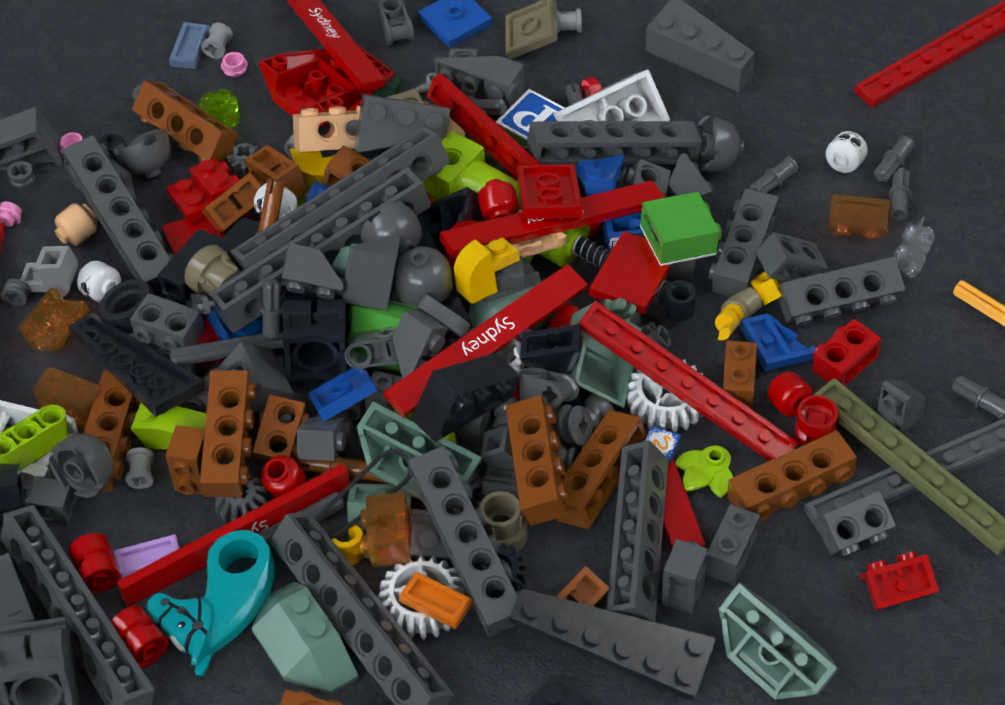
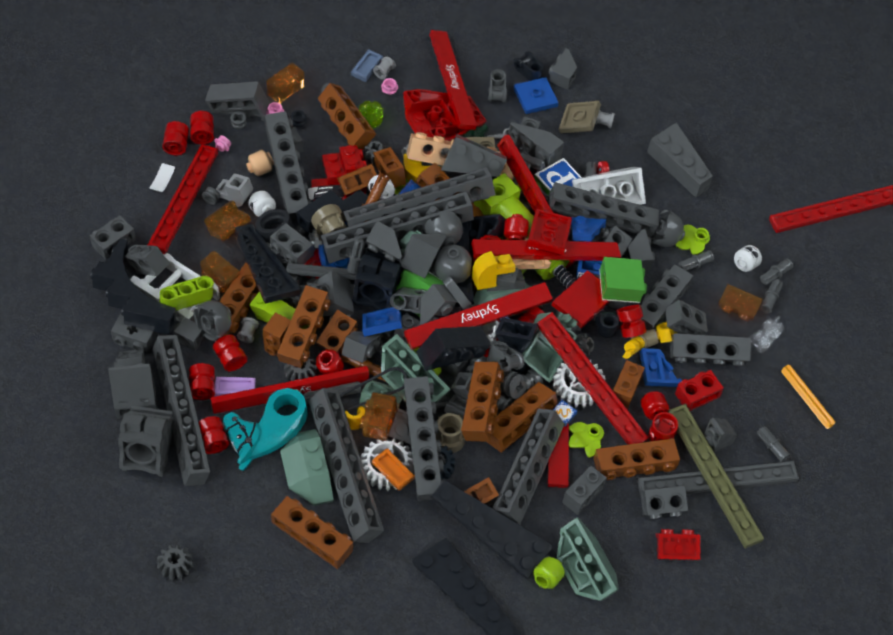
camera: 10 degrees right, 5 degrees up
(75, 101) = (285, 83): none -> clear orange brick
(124, 509) = (229, 352): none -> red wheel
(145, 153) = (315, 129): dark grey cylinder -> none
(176, 241) = (316, 192): none -> sticker
(684, 576) = (547, 501): dark grey brick -> none
(714, 285) = (631, 320): none -> red wheel
(724, 679) = (549, 573): none -> lime head
(759, 149) = (692, 241): none -> lime plate

